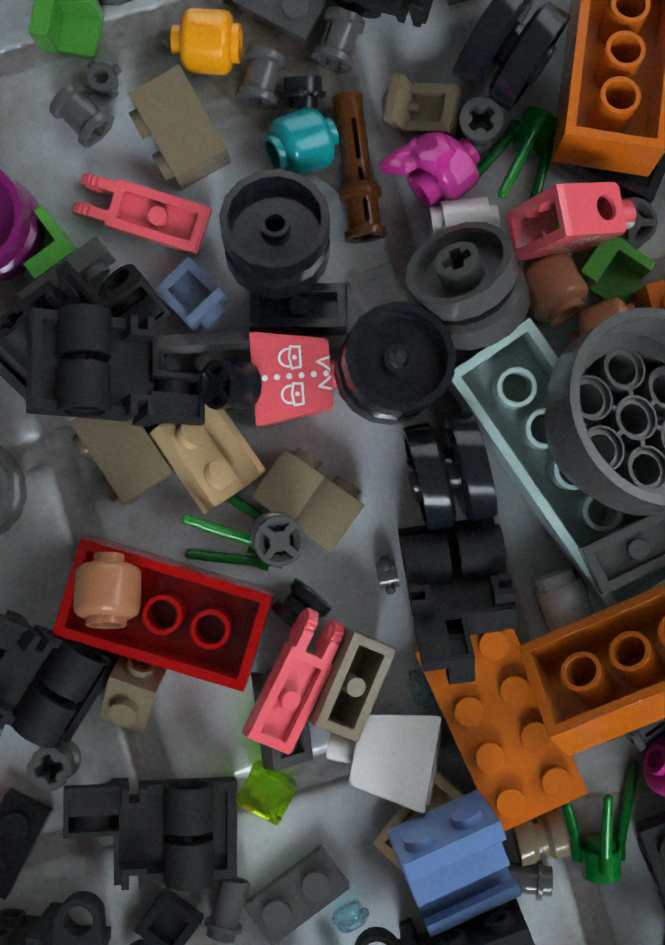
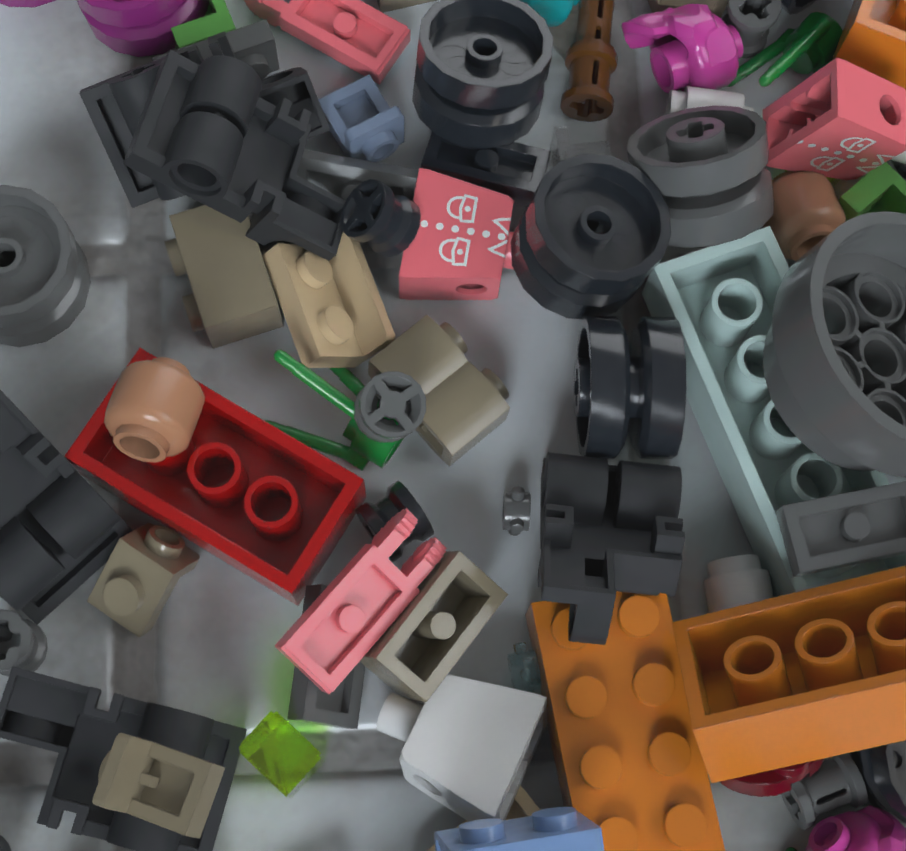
camera: 10 degrees right, 15 degrees down
(190, 850) = (158, 784): none -> dark tan bracket

